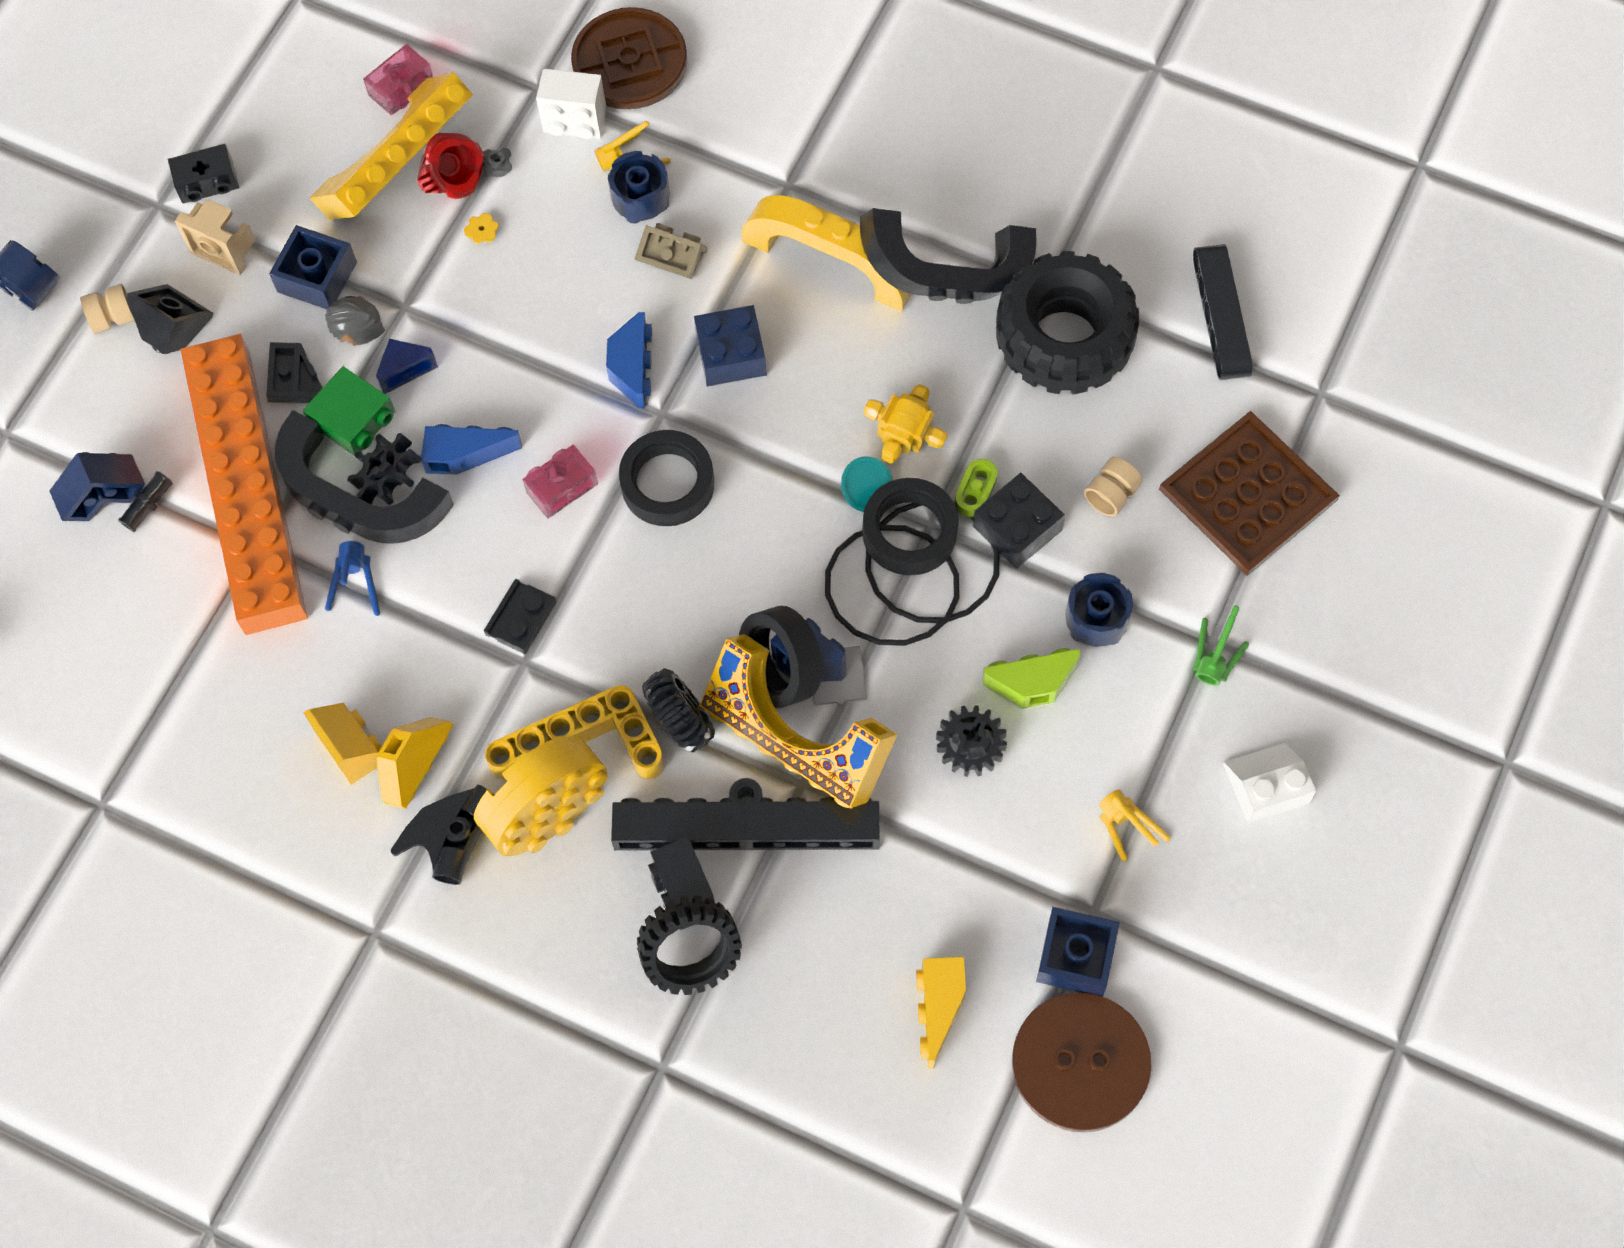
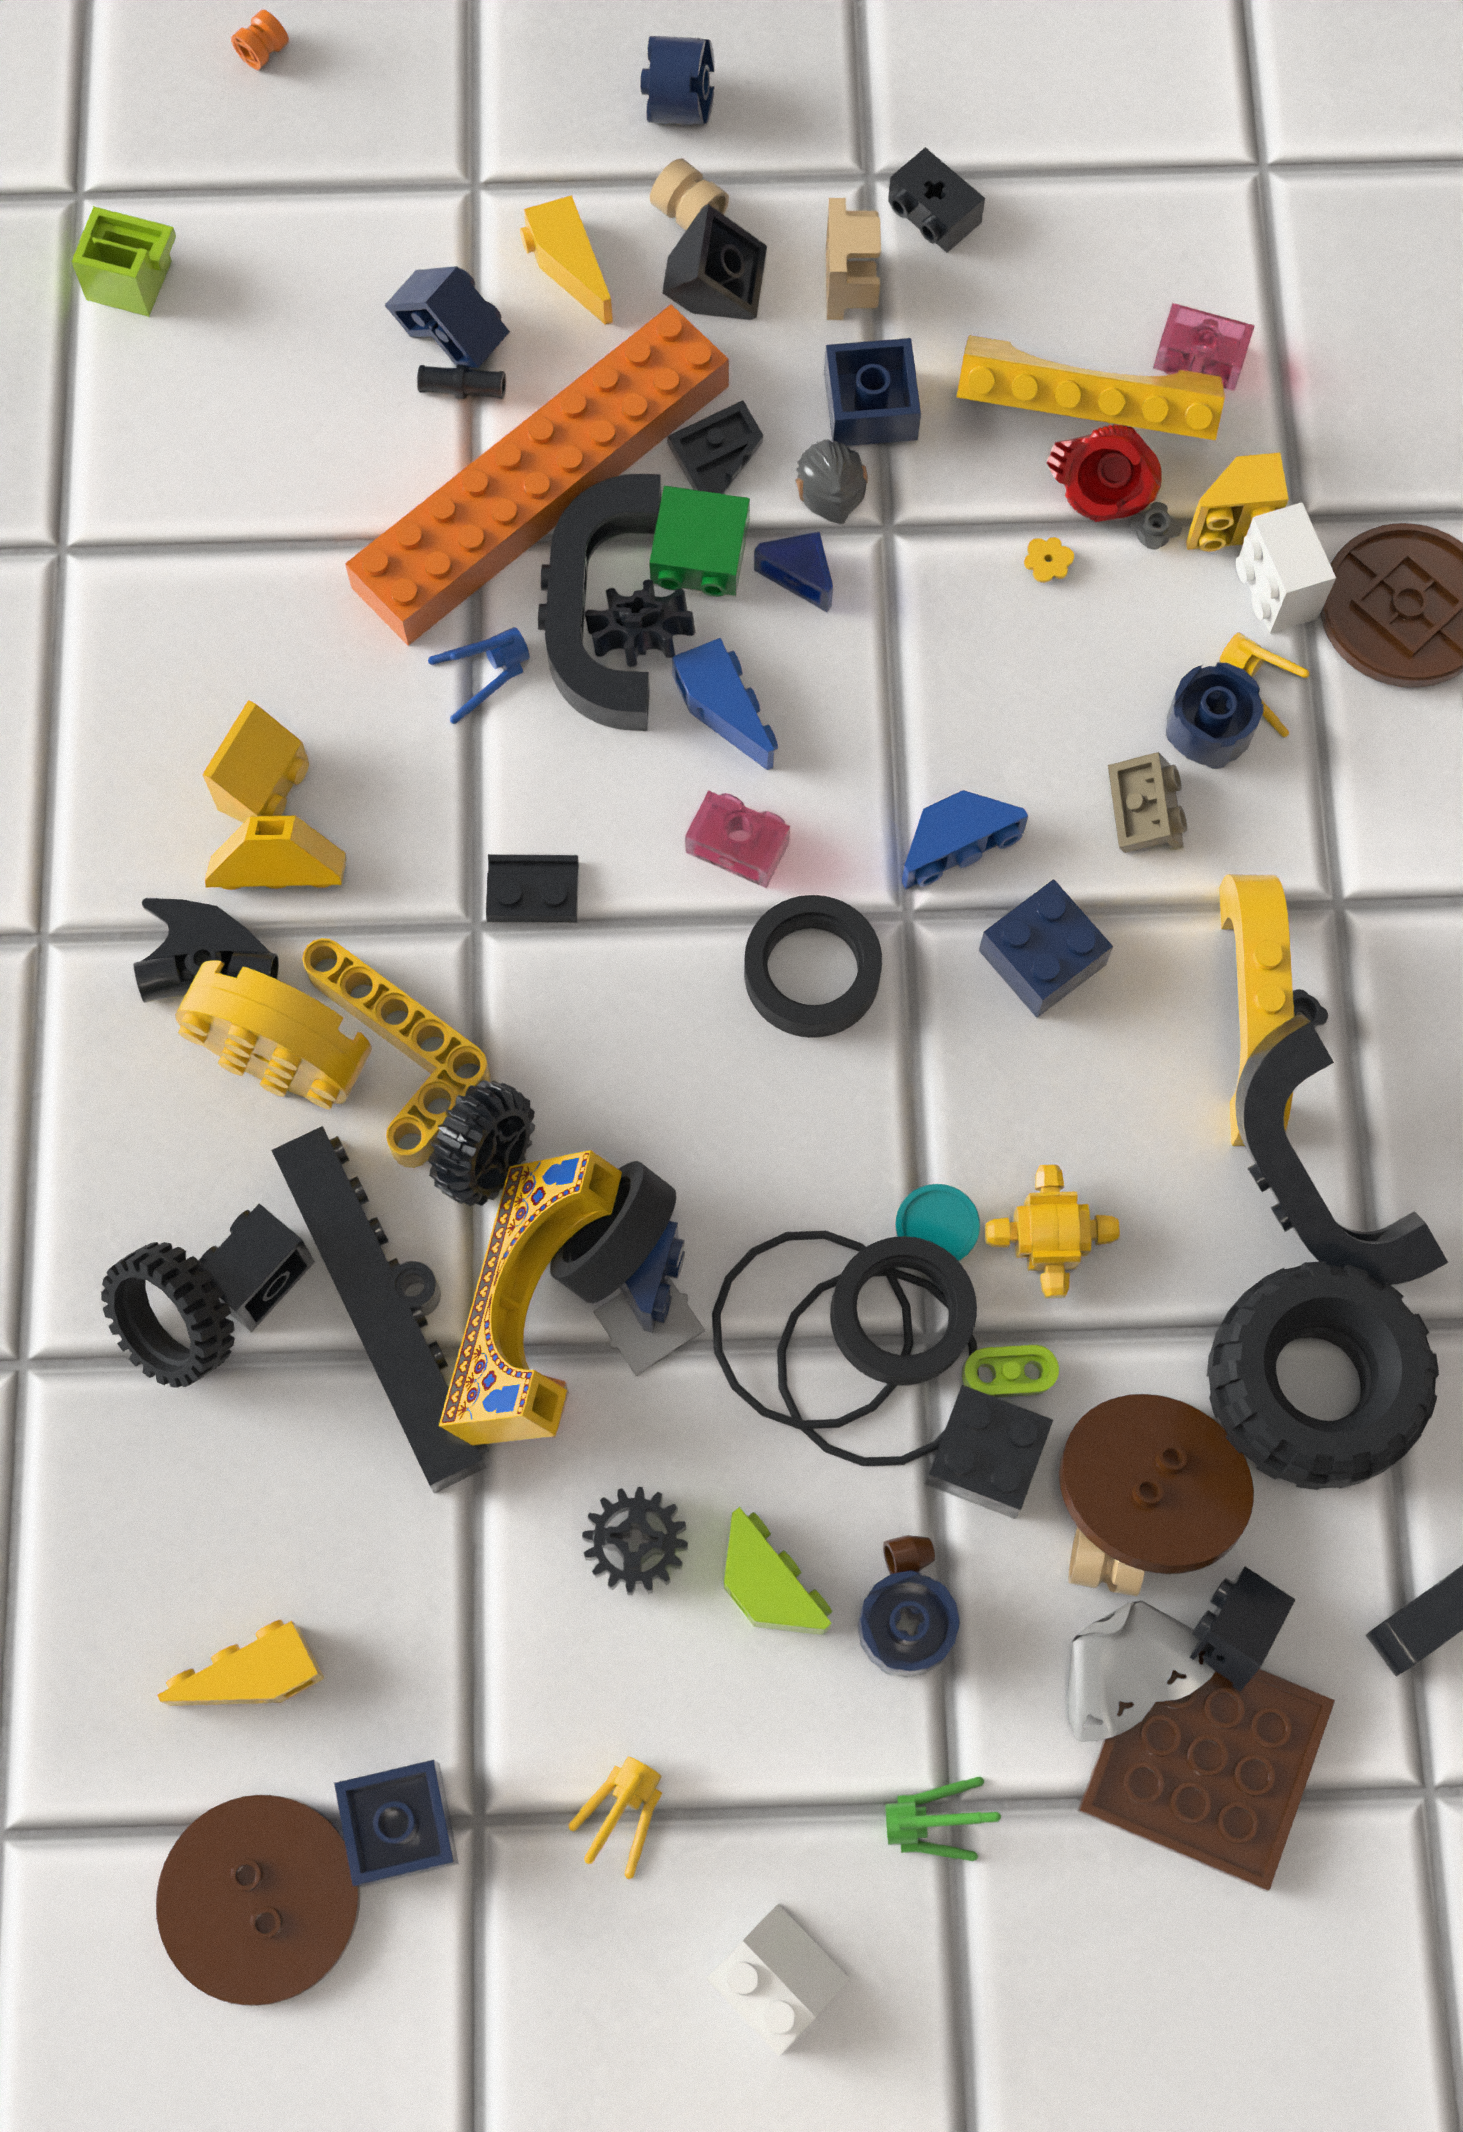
camera: 60 degrees right, 5 degrees up
(97, 398) = (565, 253): none -> yellow slope
(517, 105) = (1244, 490): none -> yellow slope
(1055, 595) = (908, 1553): none -> reddish brown hose
(1083, 439) = (1155, 1484): none -> reddish brown plate
(1178, 505) = (1128, 1661): none -> light grey piece
(1188, 434) = (1242, 1626): none -> black hinge

